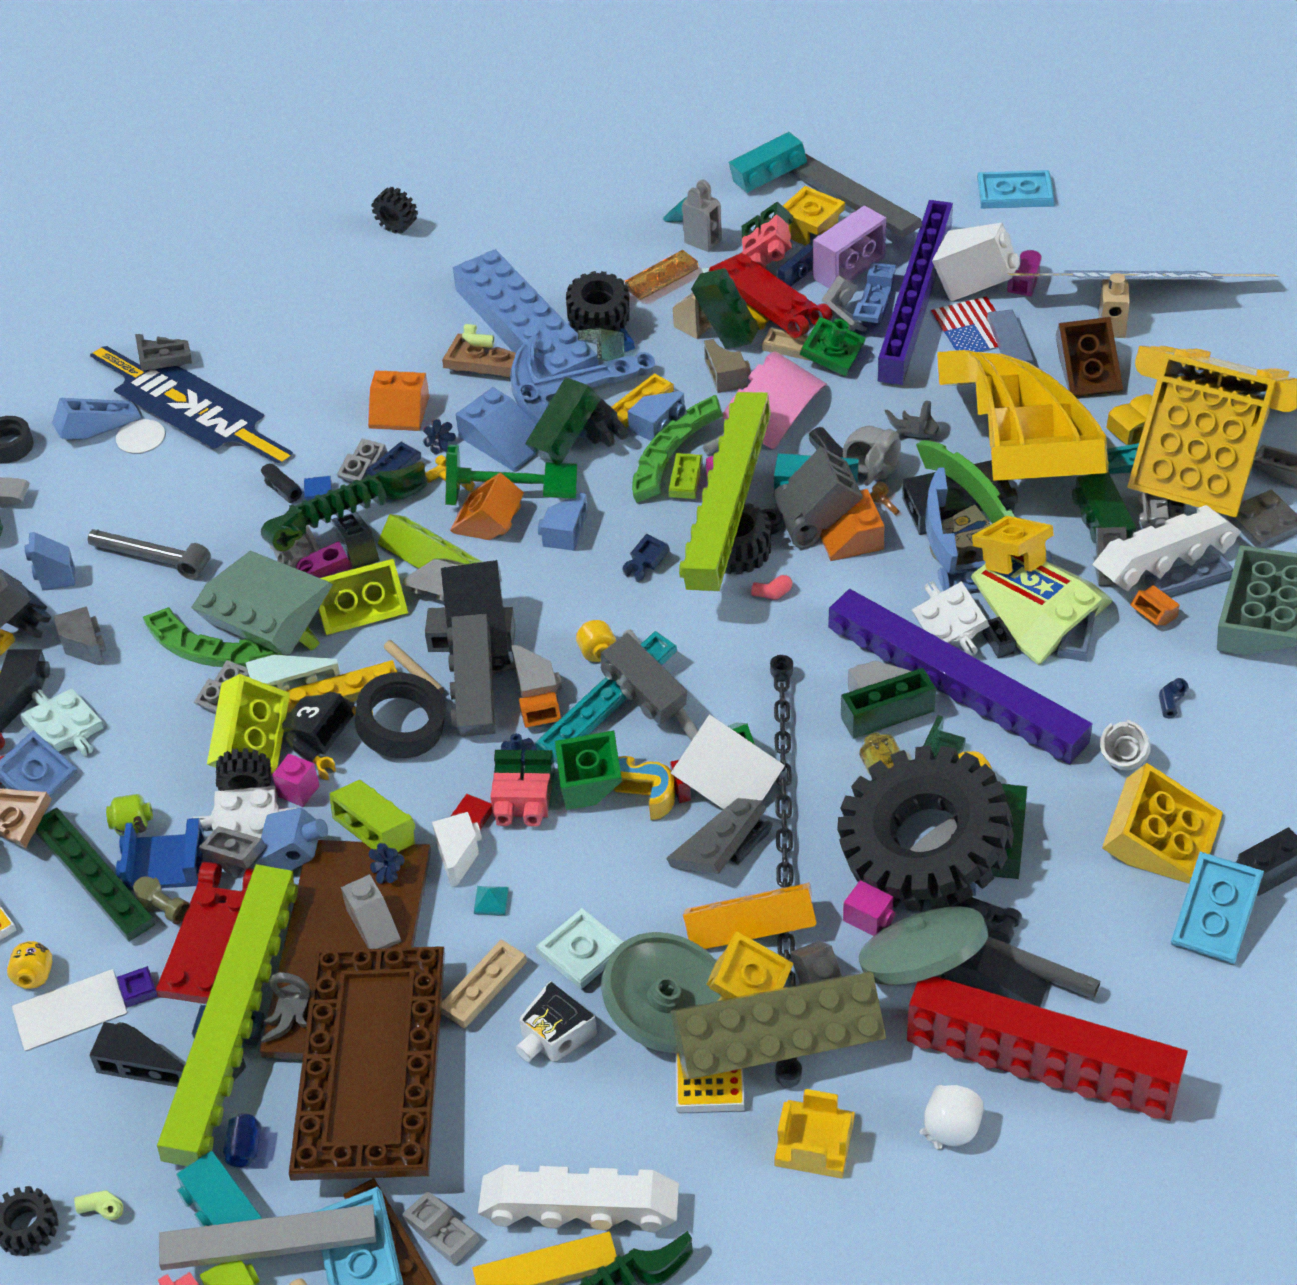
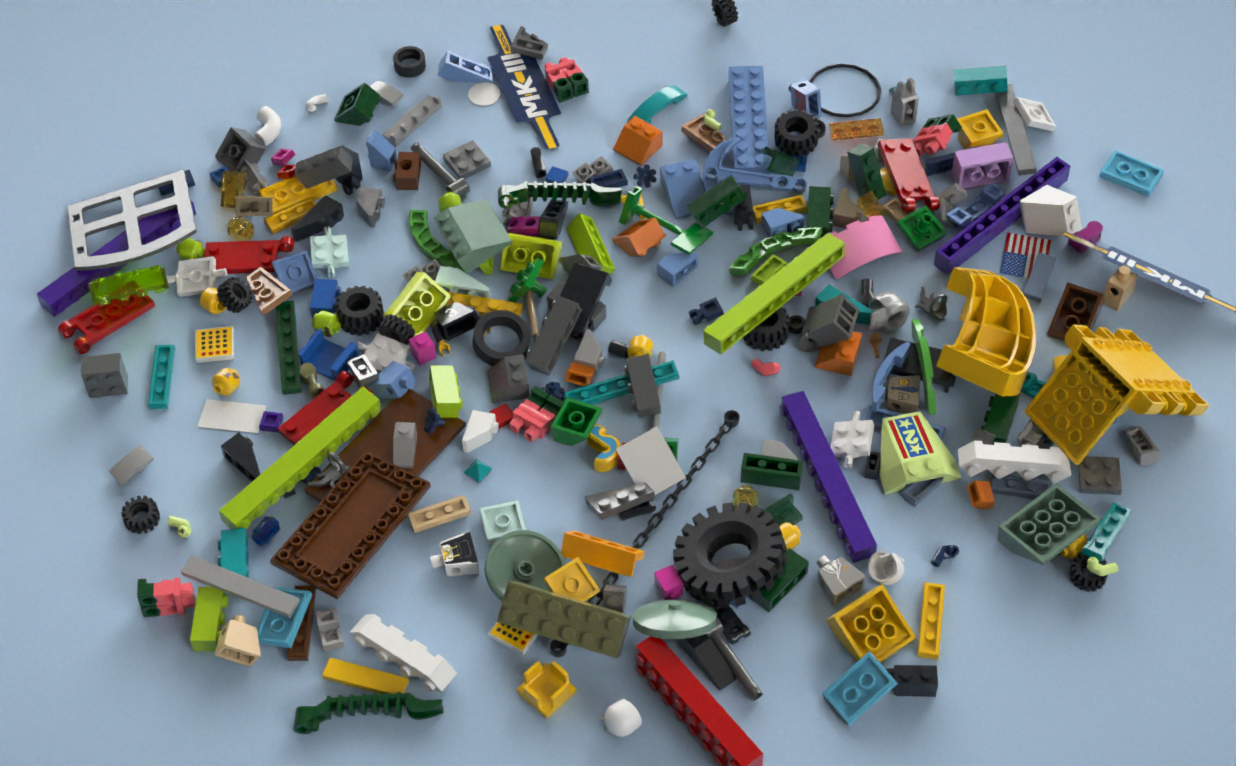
camera: 30 degrees right, 5 degrees up
(65, 502) = (412, 120): none -> light grey hinge
(101, 780) = (324, 296): none -> blue brick
(105, 570) = (407, 171): none -> reddish brown brick
(164, 756) = (357, 299): none -> black tyre
(177, 523) = (466, 160): none -> flat silver plate
(193, 581) = (448, 200): none -> lime head
(244, 371) = (566, 79): none -> hips
(382, 627) = (526, 281): none -> green plate
(387, 349) = (658, 102): none -> teal slope
(448, 761) = (508, 379): none -> dark grey slope
(567, 654) = (618, 349): none -> black piece
(571, 260) = (806, 97): none -> medium blue torso
(601, 211) = (858, 68): none -> black piece
(691, 377) = (819, 209): none -> dark green brick
(754, 345) = (871, 205): none -> clear yellow brick
(859, 171) = (1034, 114): none -> white tile
(1013, 537) = (916, 408): yellow panel -> none
(1074, 790) = (839, 579): none -> light grey torso
(1223, 783) = (931, 621): none -> yellow tile

